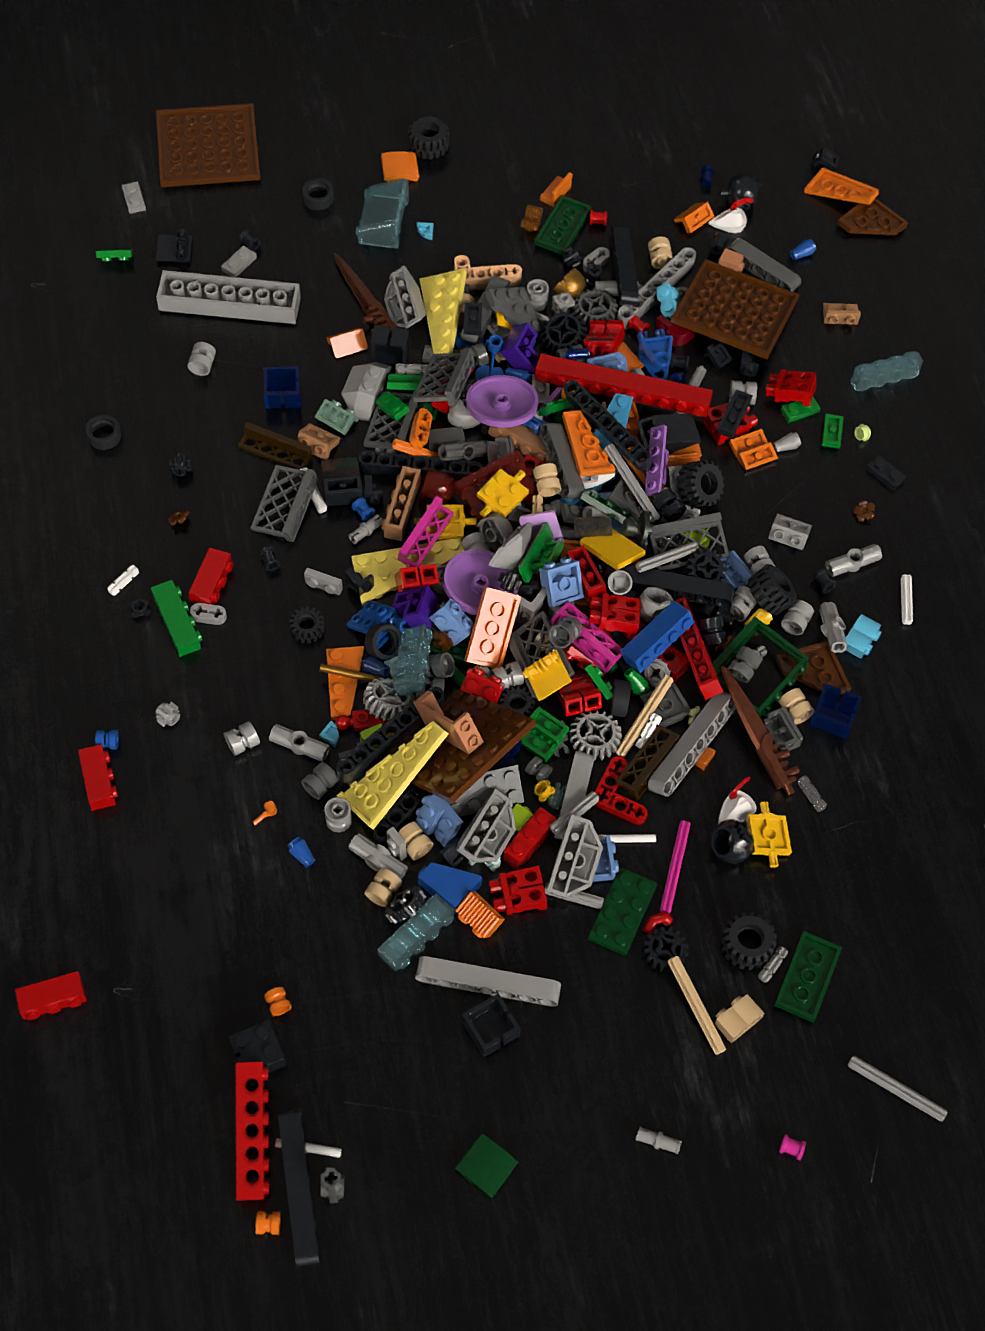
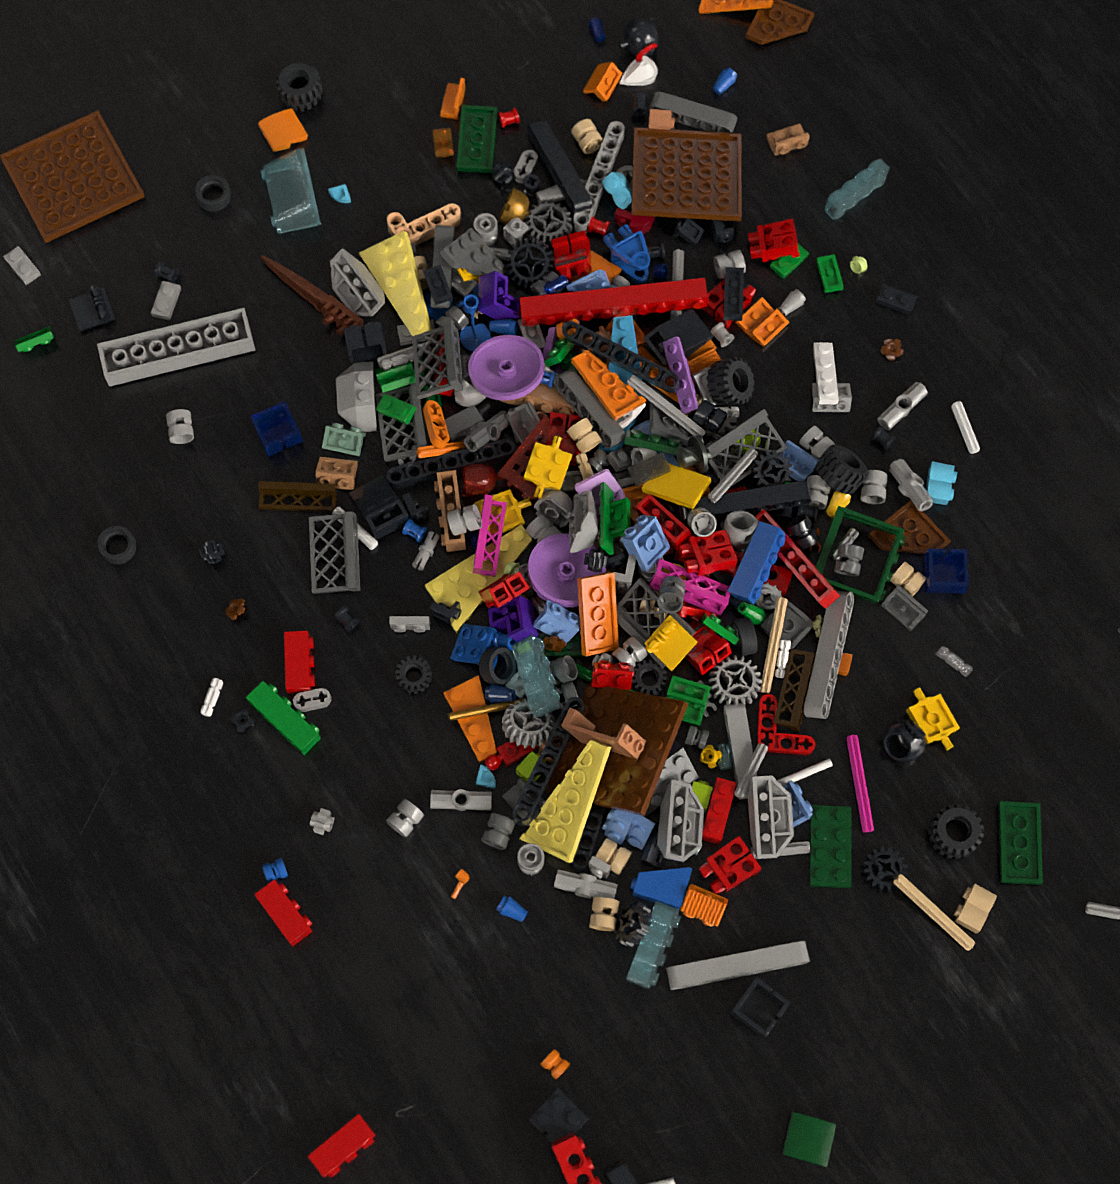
camera: 20 degrees left, 10 degrees up
(348, 342) = (317, 351): panel -> none
(407, 508) = (462, 520): none -> light grey wheel
(658, 918) = (863, 842): red arm -> none
(658, 1140) = (950, 1052): light grey pin -> none
(711, 447) = (722, 334): none -> light grey bush
(737, 804) = (892, 702): white piece -> none
(762, 739) = (891, 627): copper piece -> none
(772, 964) = (983, 848): light grey axle -> none
(792, 508) = (825, 373): none -> white plate
(792, 1146) = (1068, 1009): dark pink bush -> none

